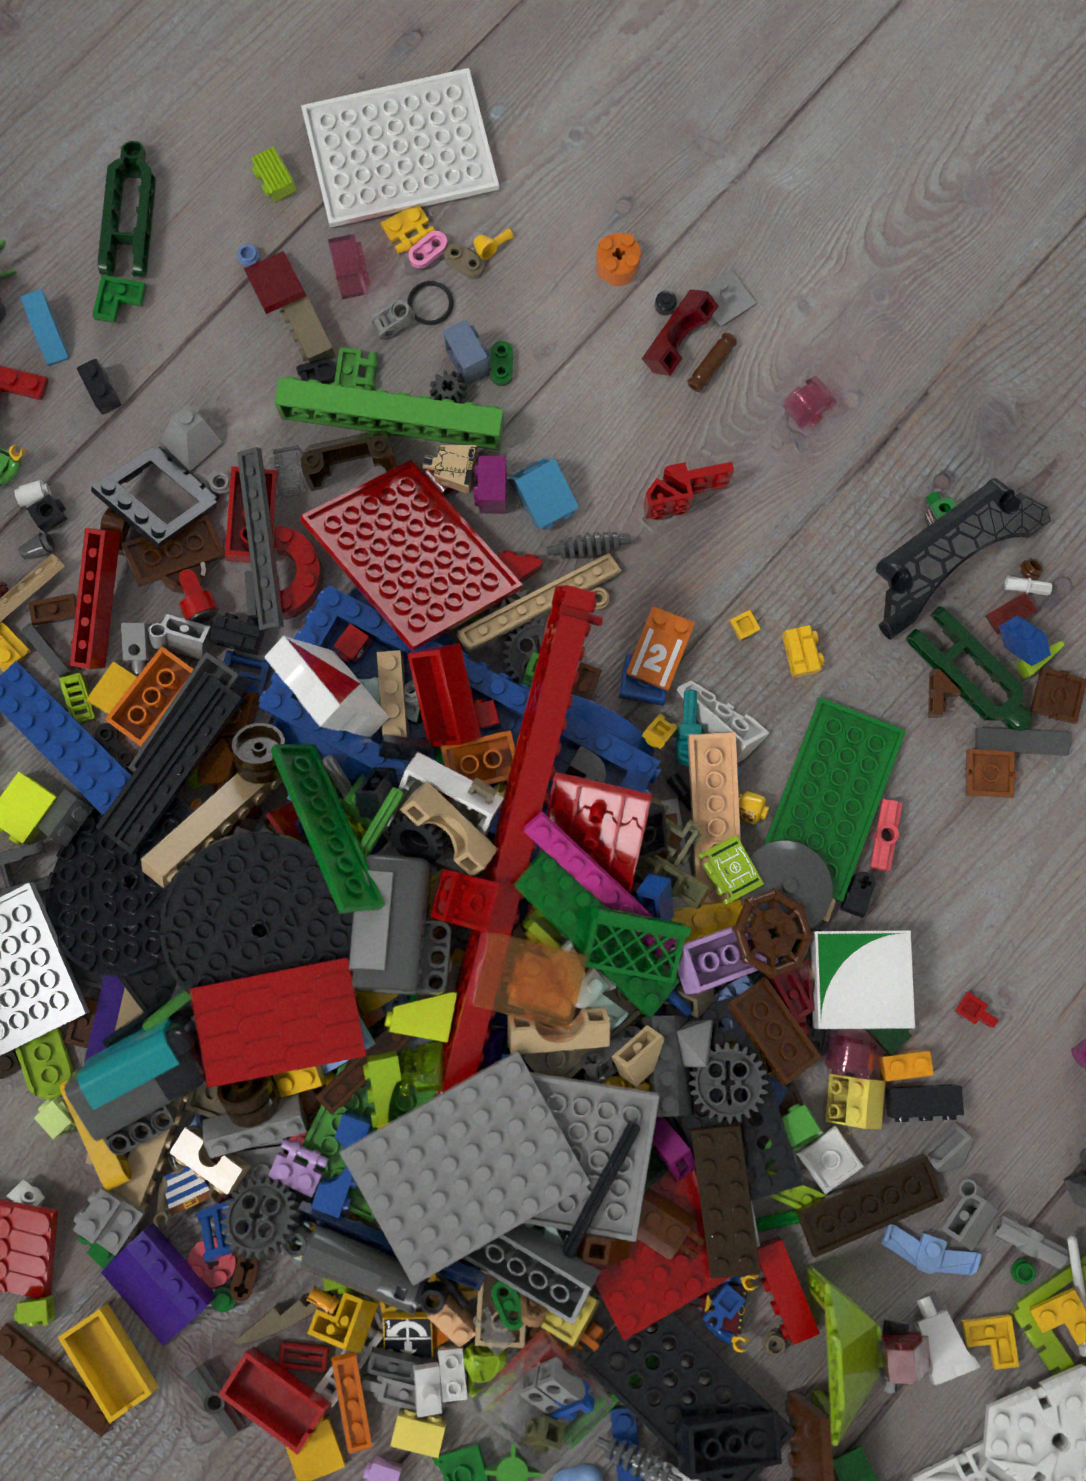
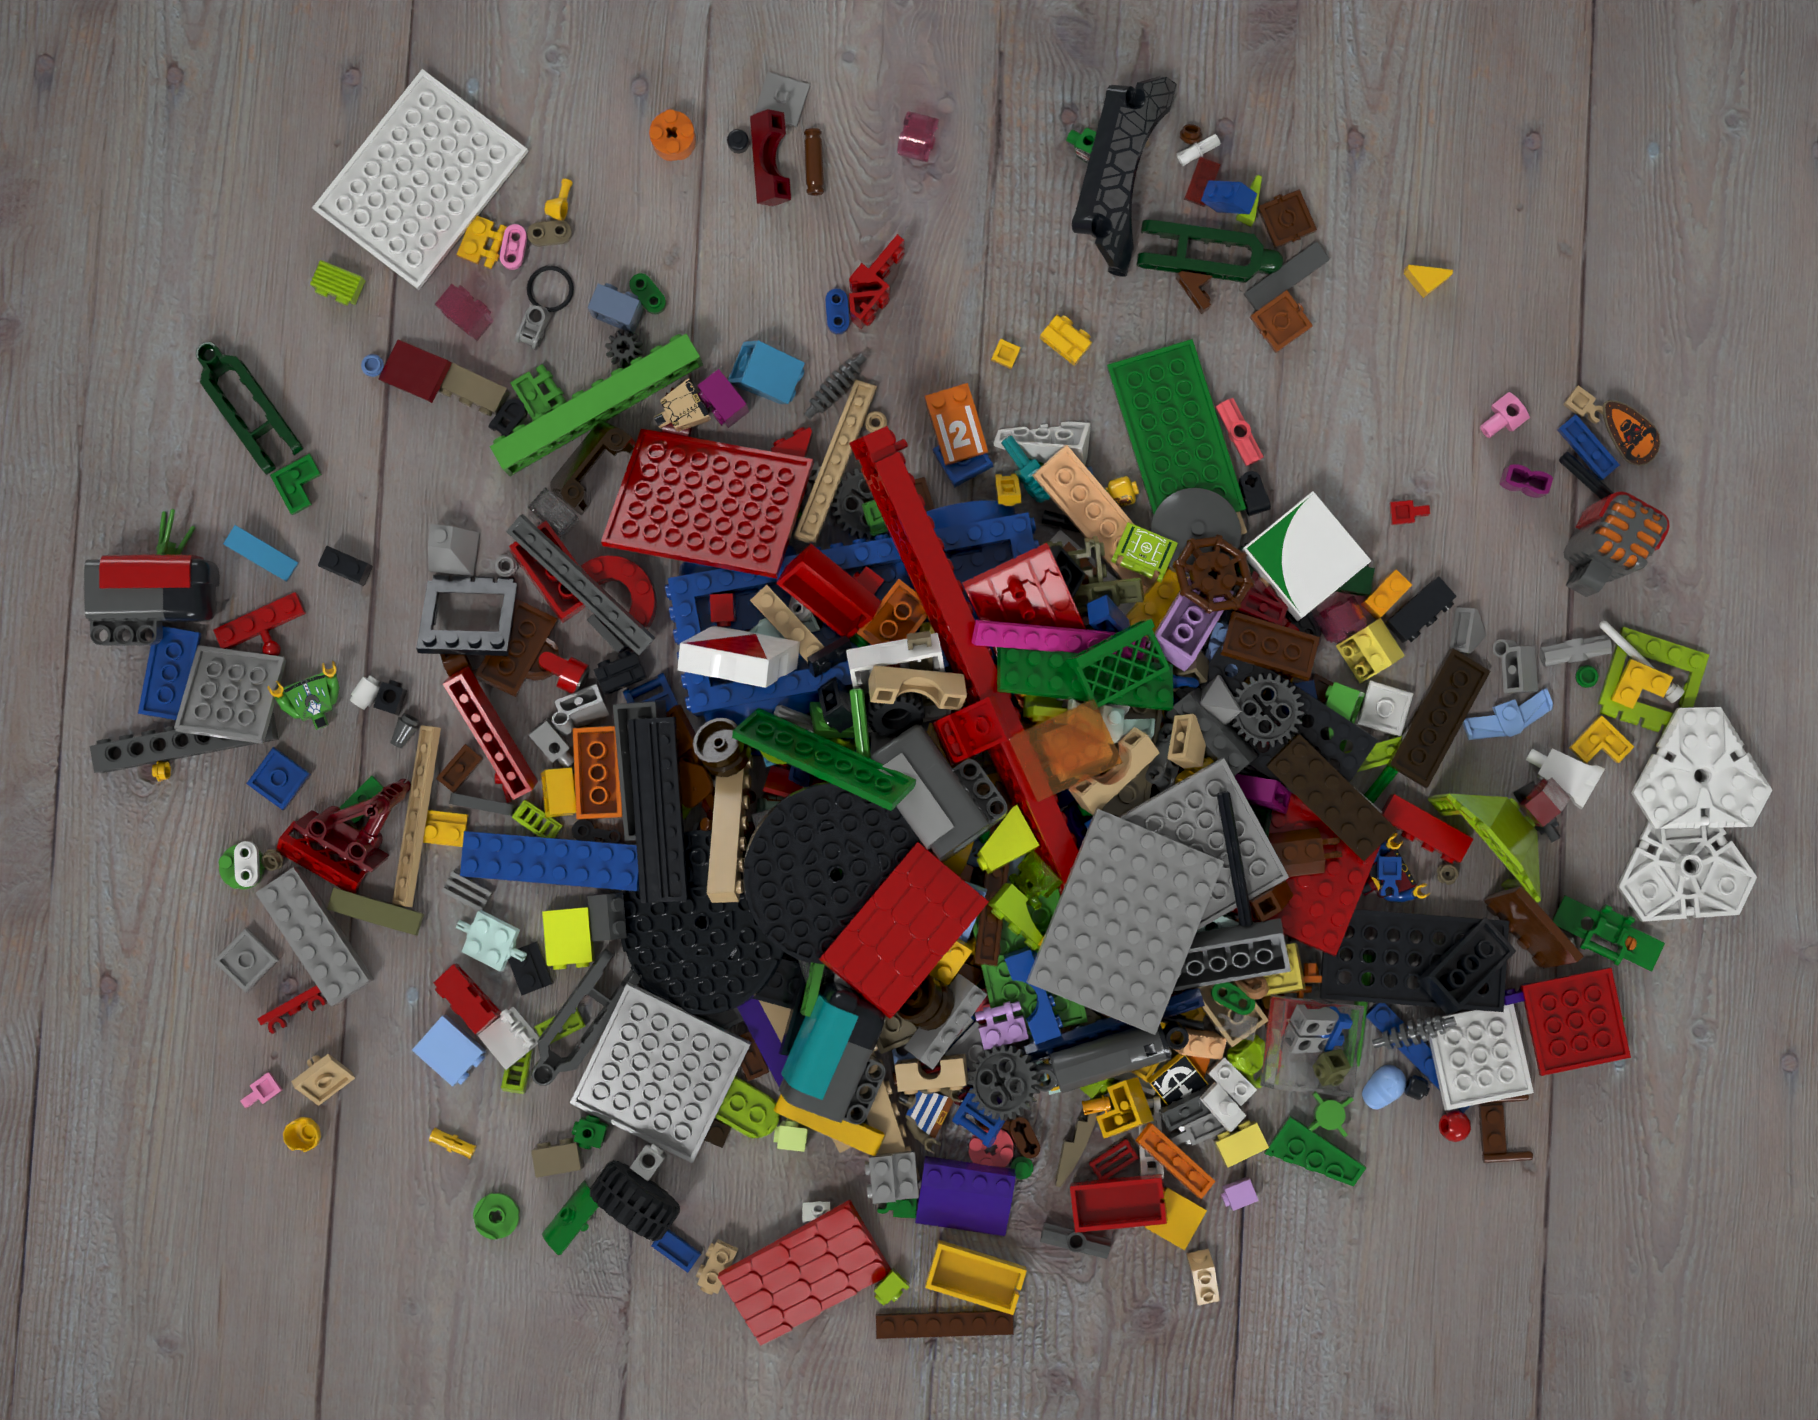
camera: 40 degrees left, 5 degrees up
(587, 766) = (977, 560): dark grey brick -> none
(636, 488) = (837, 310): none -> blue plate

